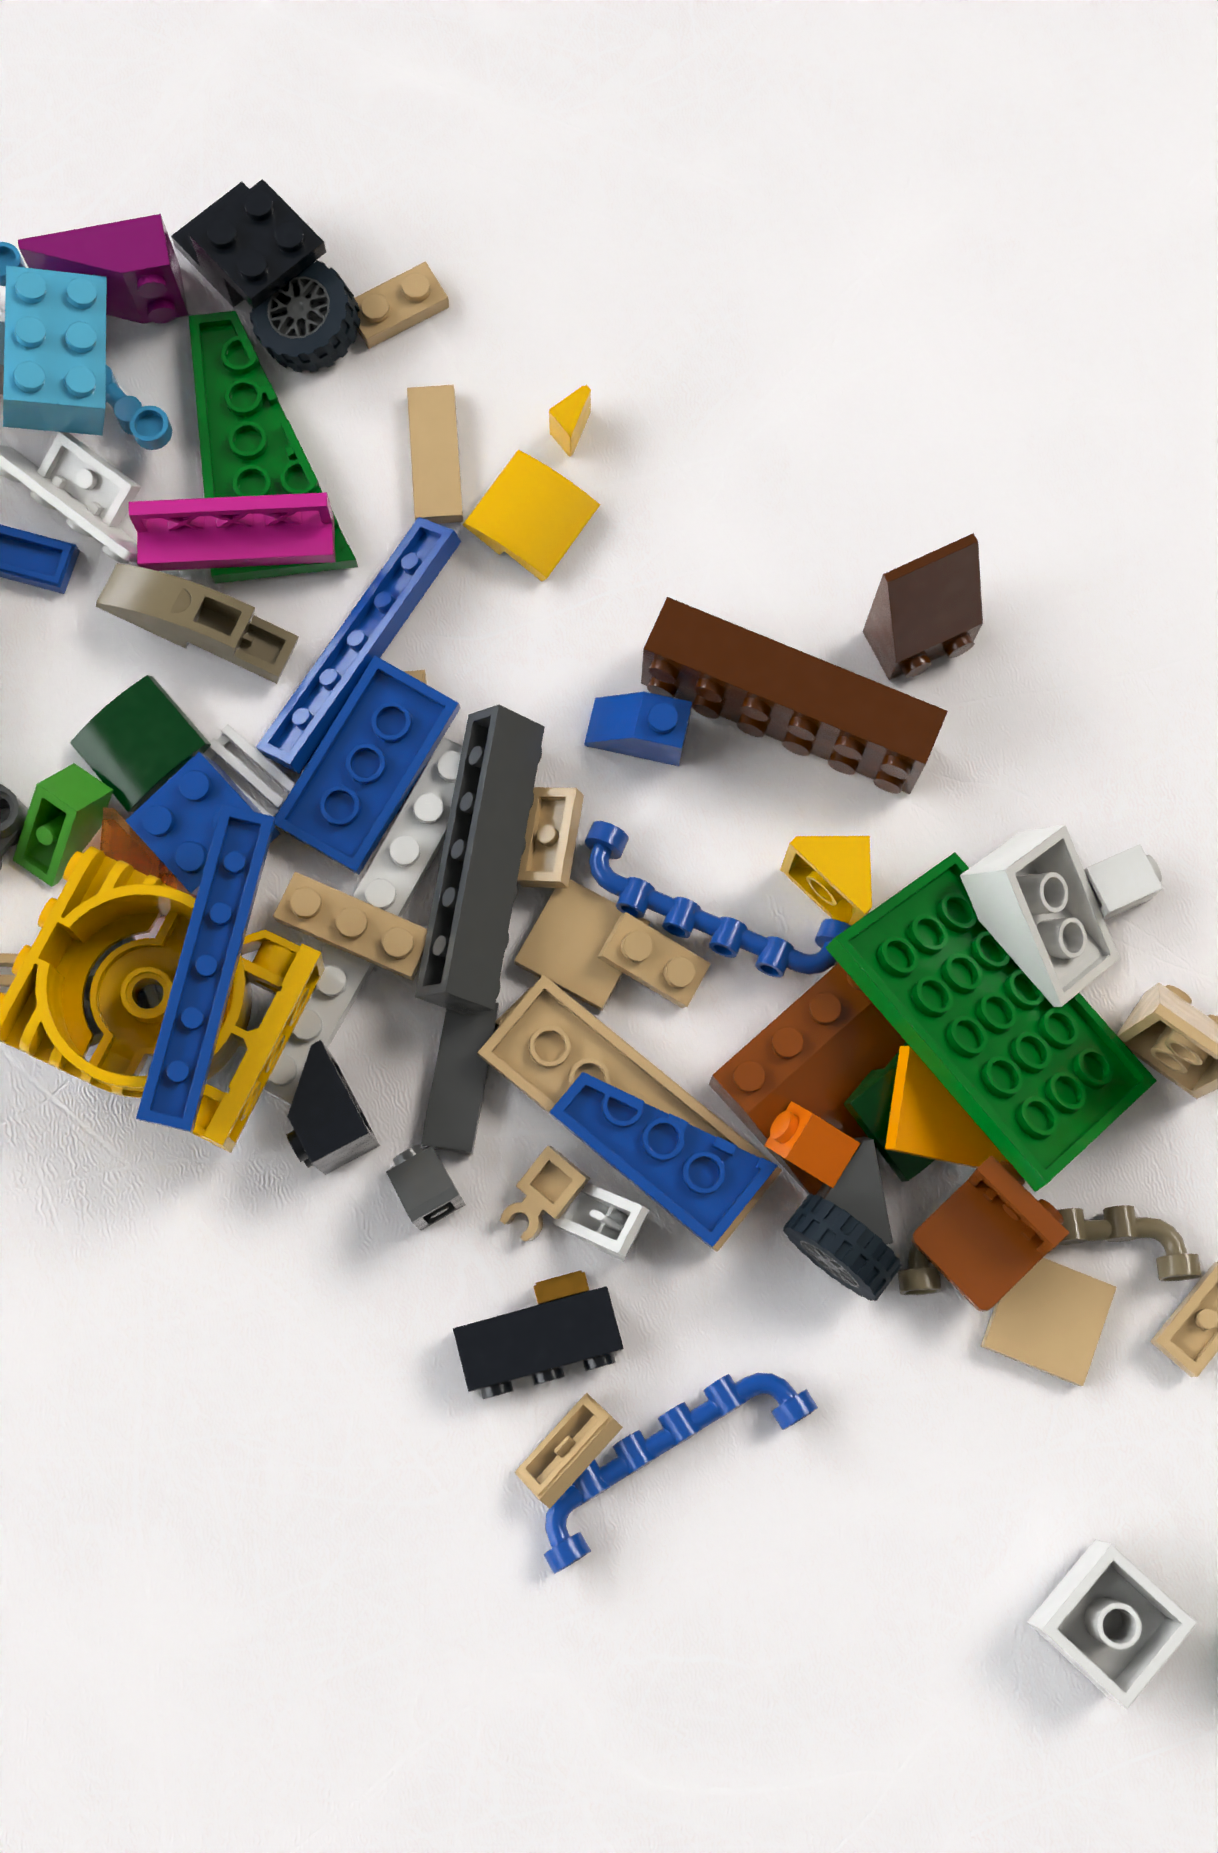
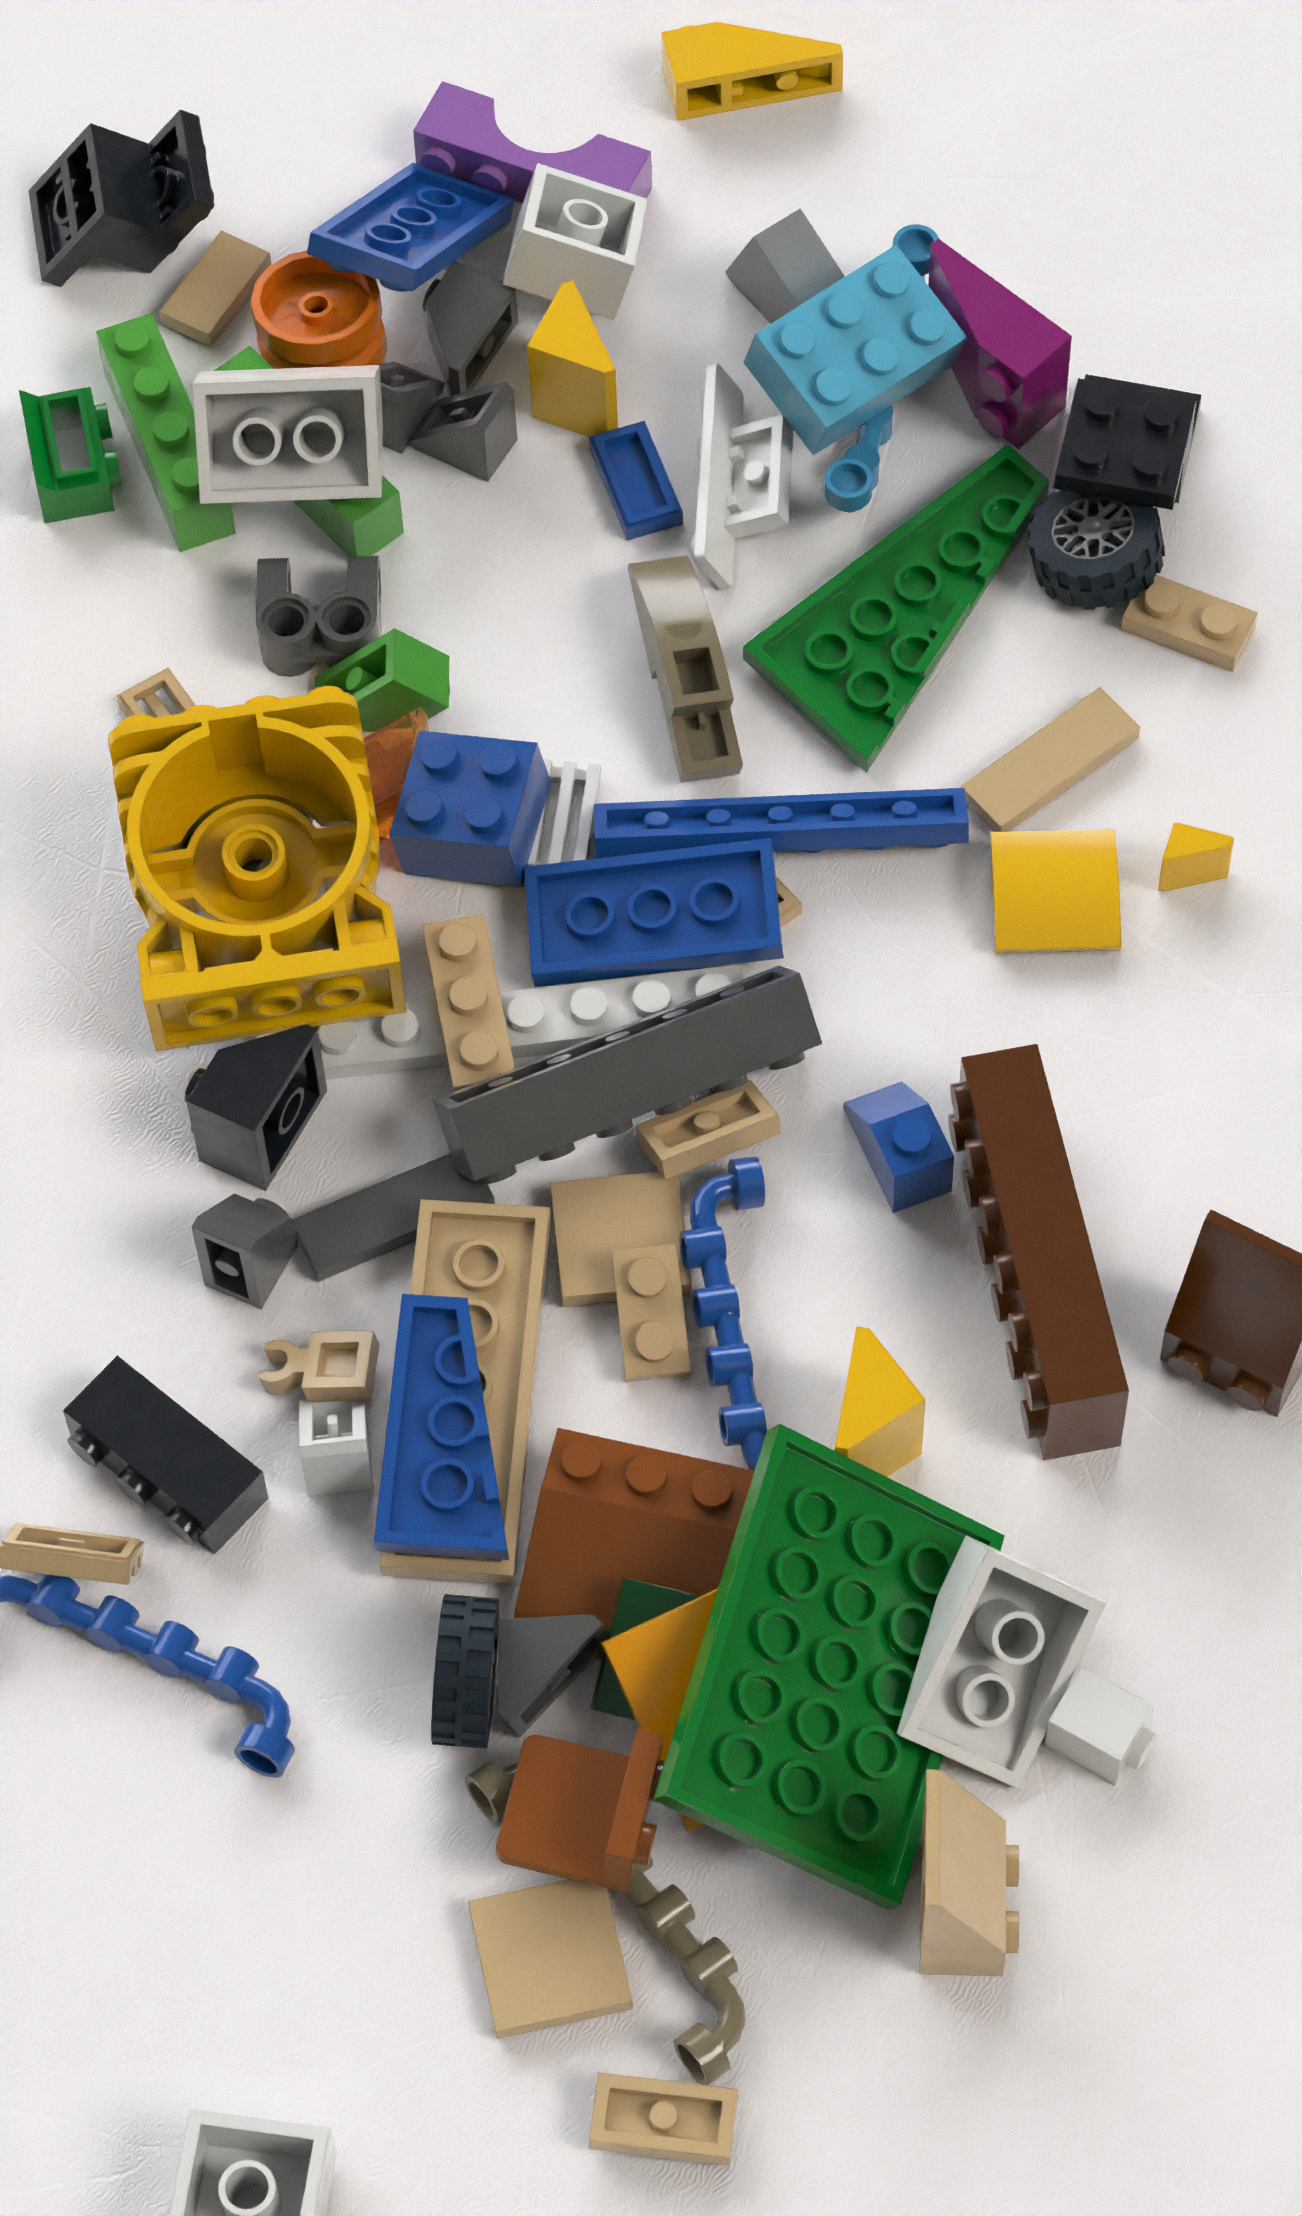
camera: 60 degrees right, 15 degrees down
(139, 742) = (521, 695): dark green slope -> none
(206, 969) = (304, 864): blue plate -> none
(234, 531) = (801, 631): dark pink fence -> none
(561, 1287) = (236, 1434): pearl gold tile -> none
(811, 1143) = (553, 1567): orange brick -> none

